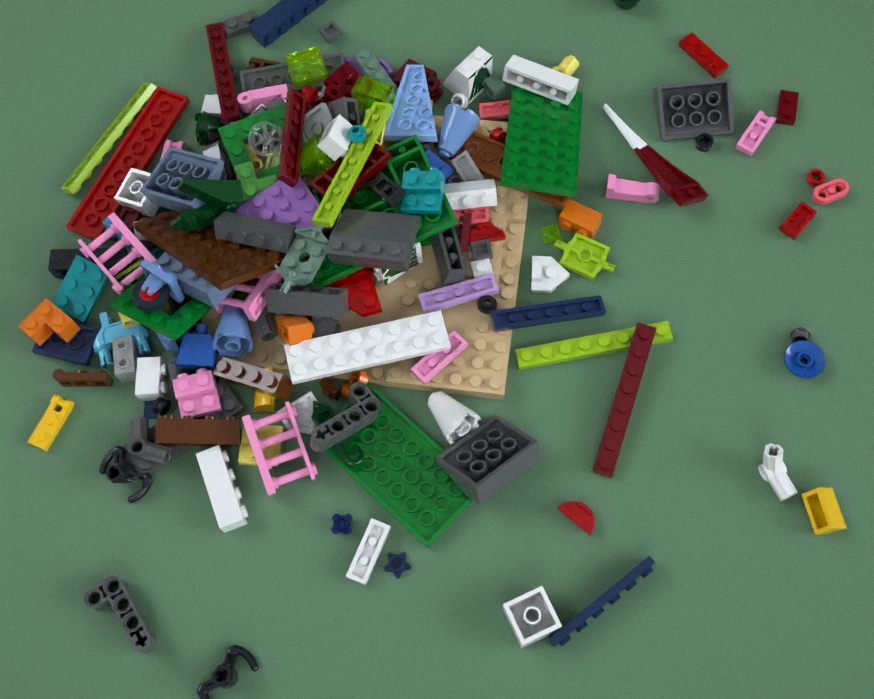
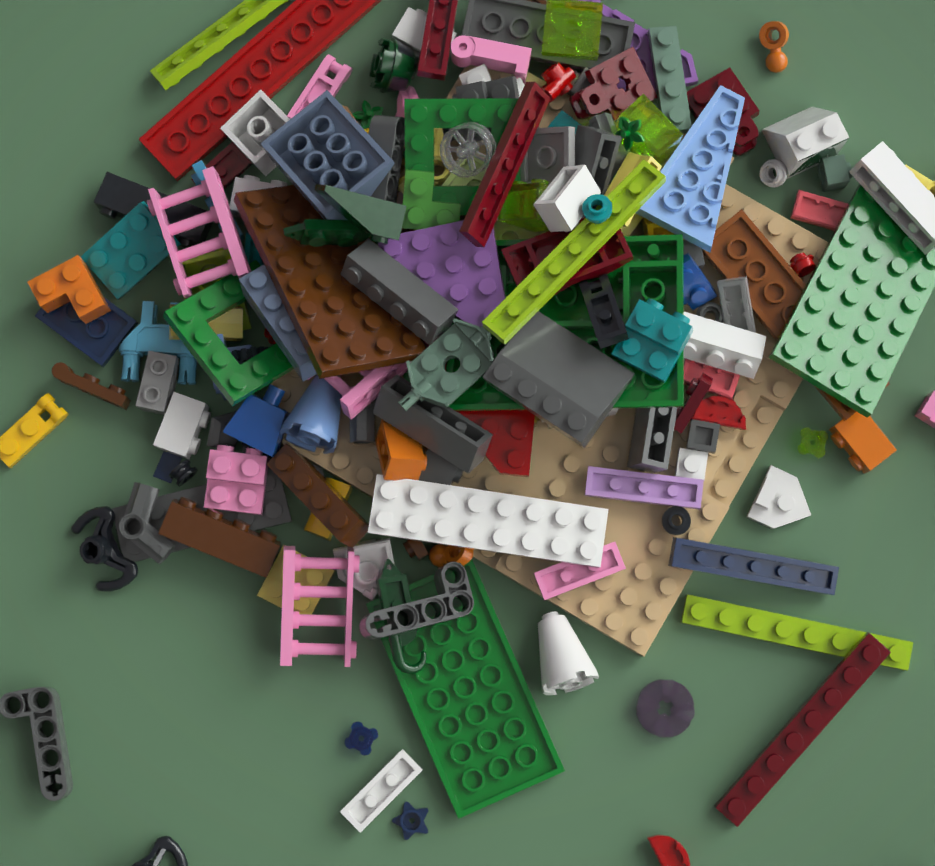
camera: 15 degrees right, 15 degrees up
(154, 290) = (227, 324): plate -> none
(221, 488) = (223, 624): white brick -> none
(361, 95) = (629, 132): none -> green plant
(434, 45) = (776, 60): none -> orange plate
(455, 129) = (743, 240): medium blue cone -> none
(489, 458) = (586, 735): dark grey slope -> none
(533, 412) = (681, 712): none -> clear purple plate
(584, 256) = (843, 497): lime plate -> none

